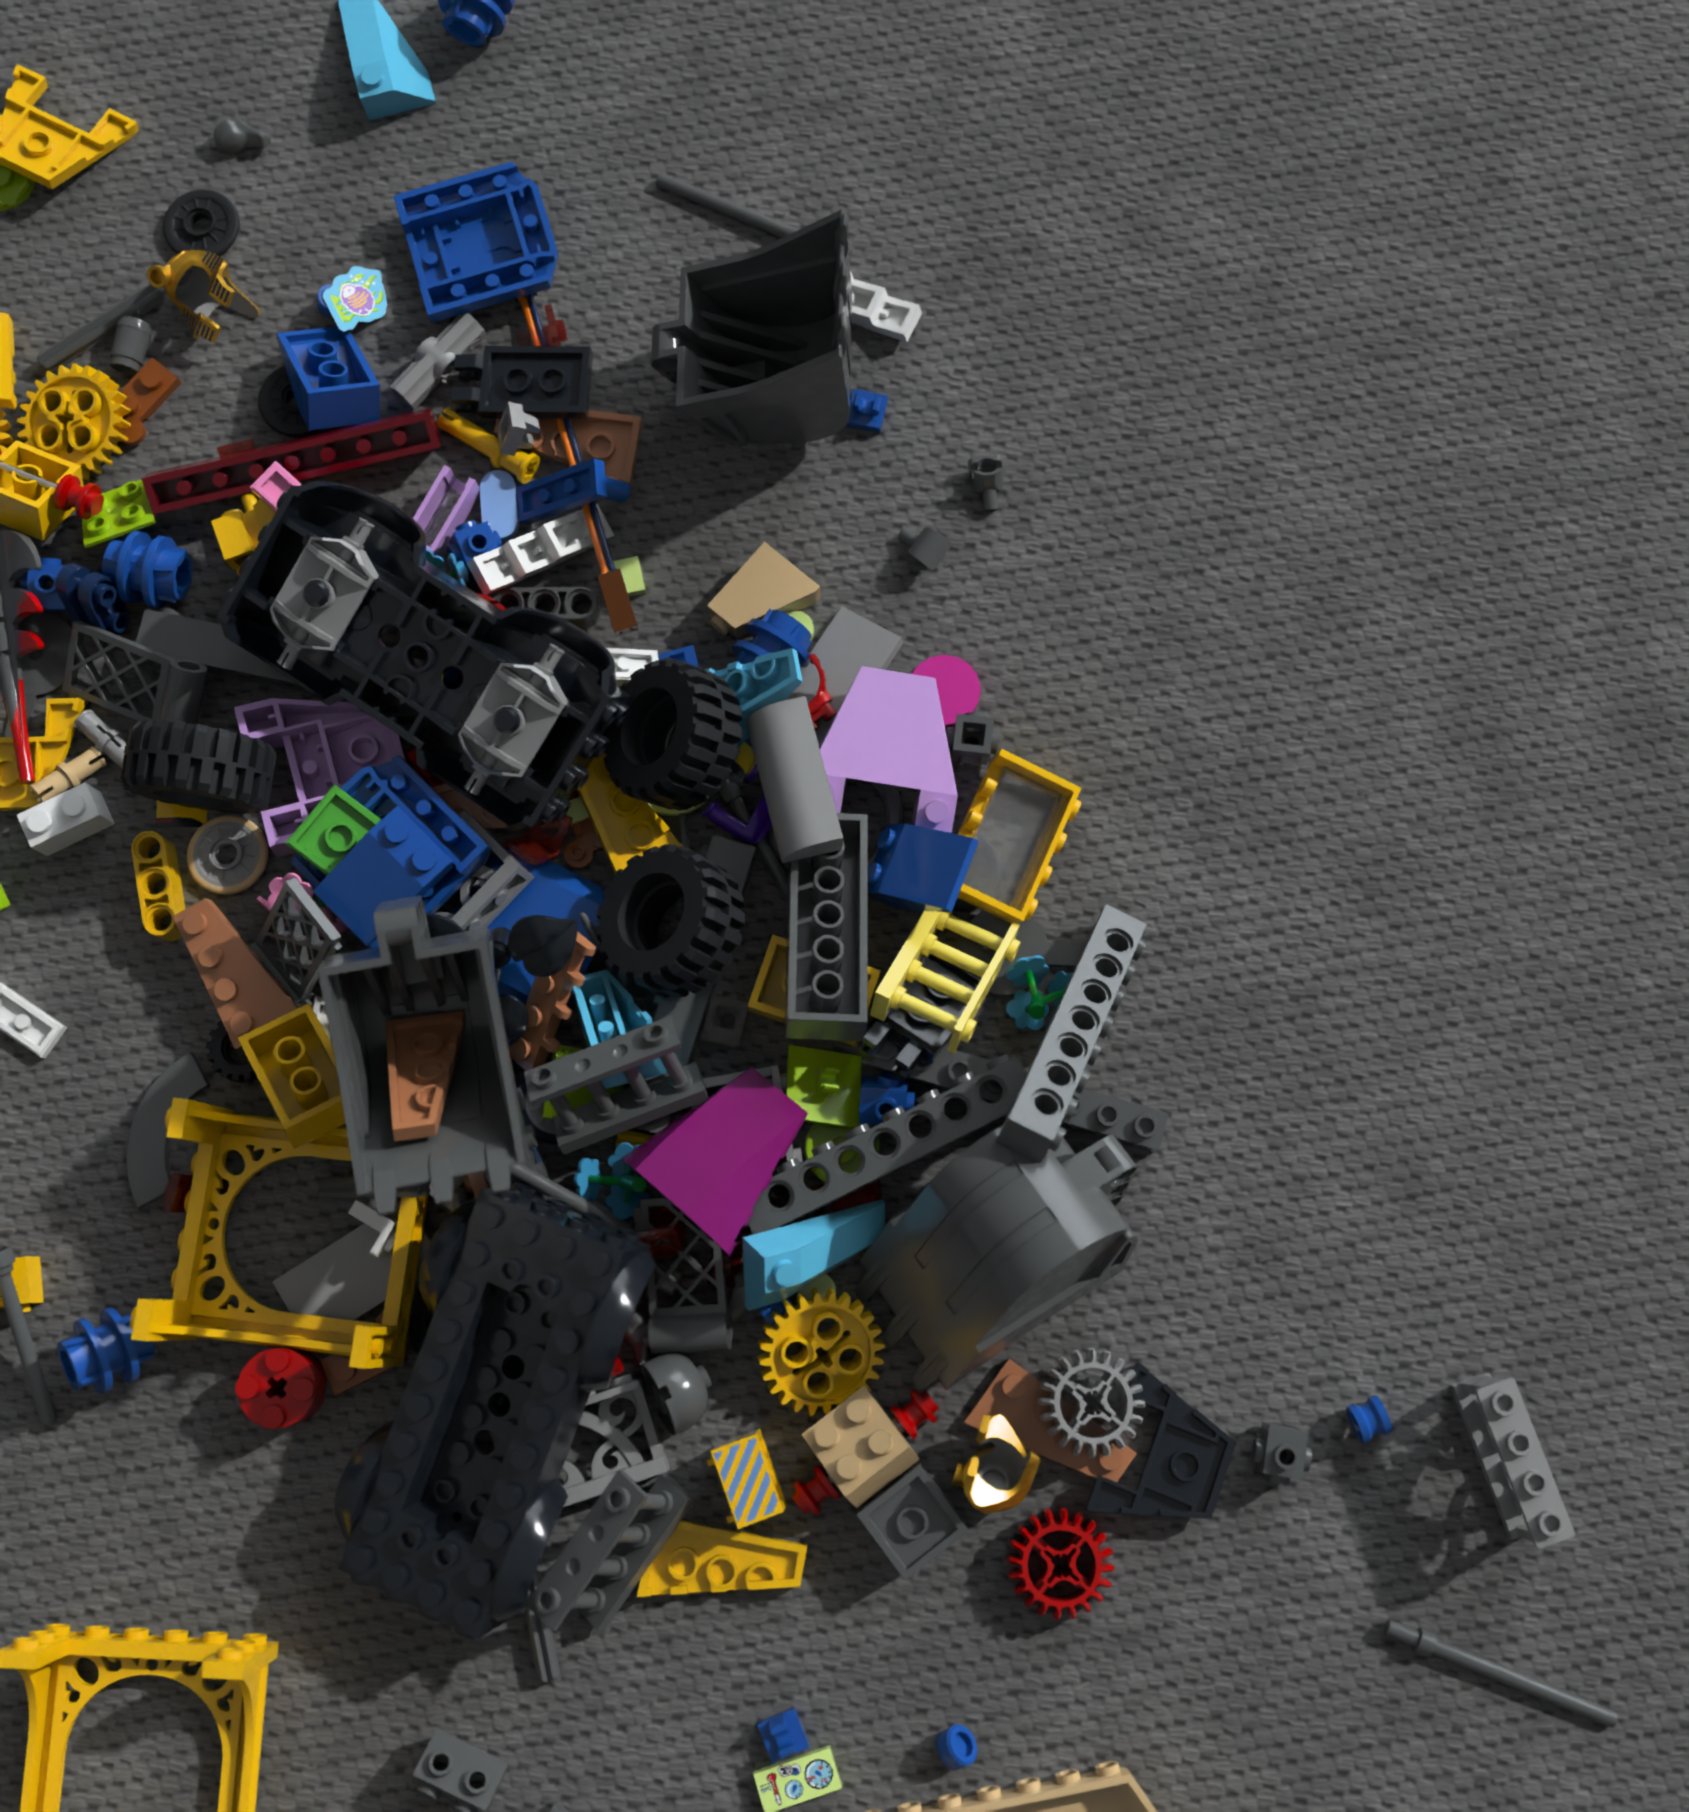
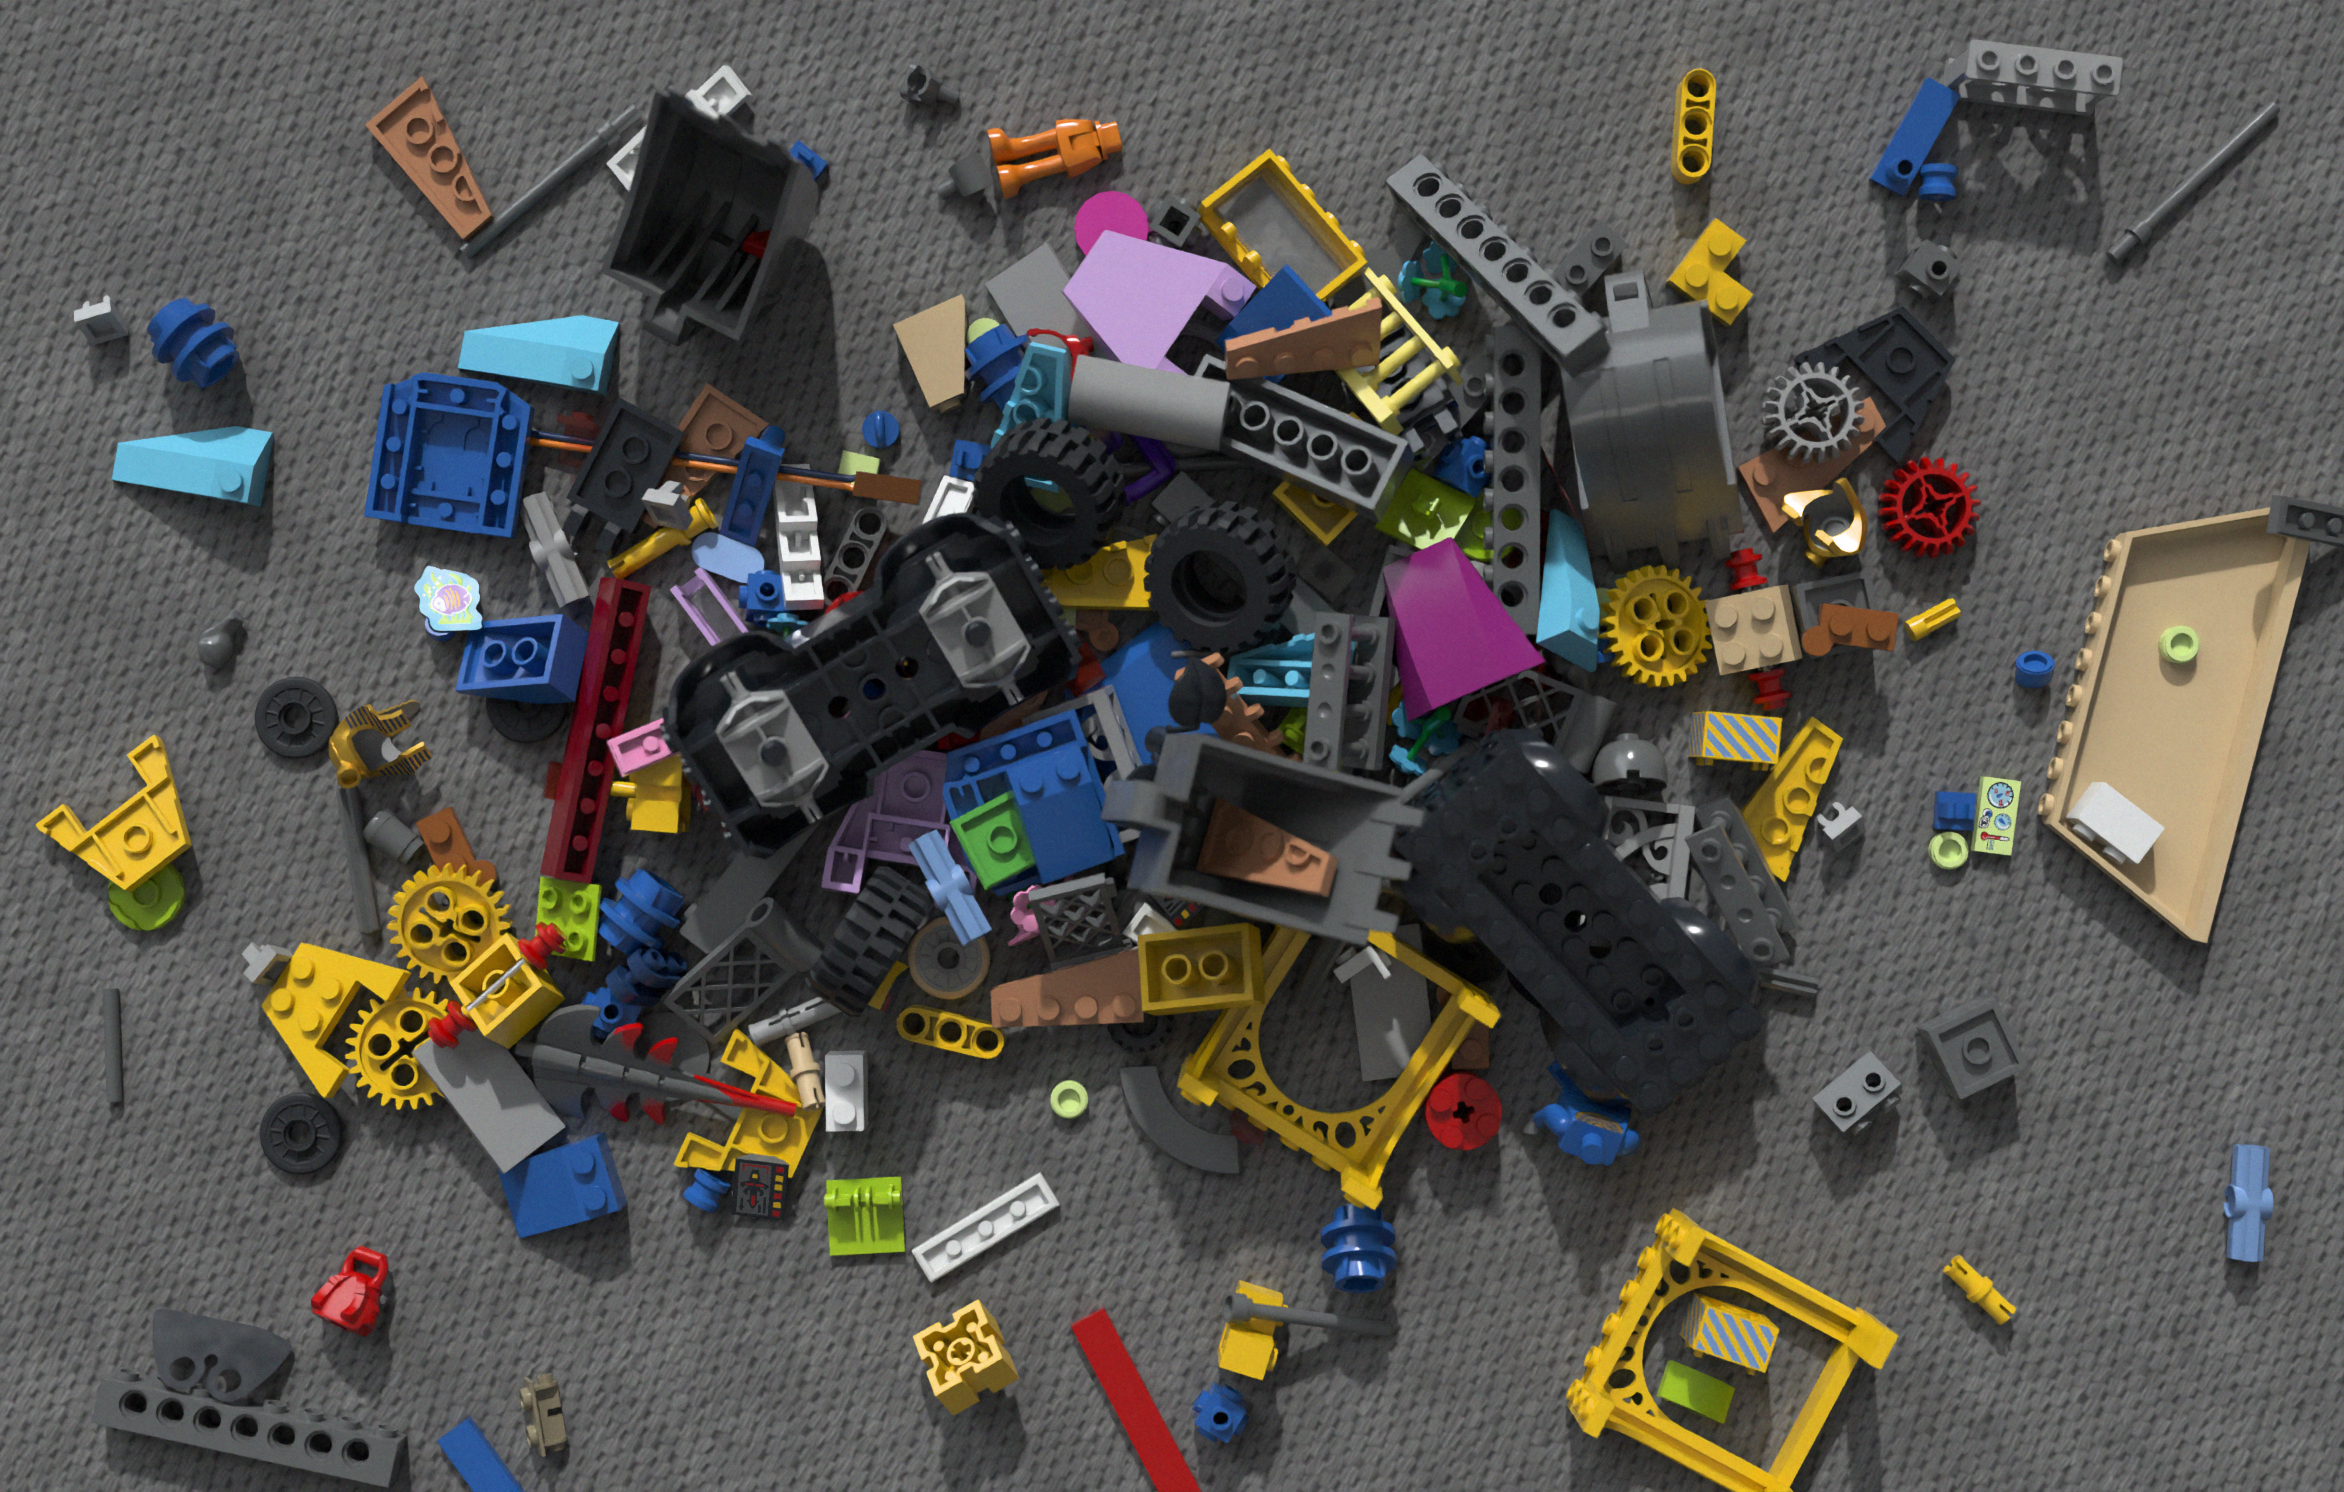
camera: 65 degrees left, 10 degrees up
(103, 1752) = (1695, 1391): none -> lime slope
(143, 1021) = (1069, 1099): none -> yellowish green tile
(170, 1756) = (1728, 1332): none -> yellow container
(278, 815) = (950, 887): none -> medium blue piece
(306, 1519) = (1587, 1128): none -> blue torso
(608, 286) = (554, 352): none -> medium azure wedge
(671, 580) = (881, 430): none -> blue tile
(713, 1630) = (1843, 829): none -> light grey tile
(725, 116) = (426, 149): none -> nougat wing
(742, 1748) = (1948, 850): none -> yellowish green tile
(903, 1539) = (1850, 628): none -> dark orange hinge
(911, 1188) = (1565, 497): none -> black piece
(923, 909) = (1329, 343): none -> nougat wing
(956, 1620) = (1932, 619): none -> yellow piece
(1003, 626) = (1078, 147): none -> orange piece
(1168, 1234) = (1702, 274): none -> yellow brick
(1317, 1156) = (1698, 109): none -> yellow beam
(1400, 1376) = (1914, 136): none -> blue piece

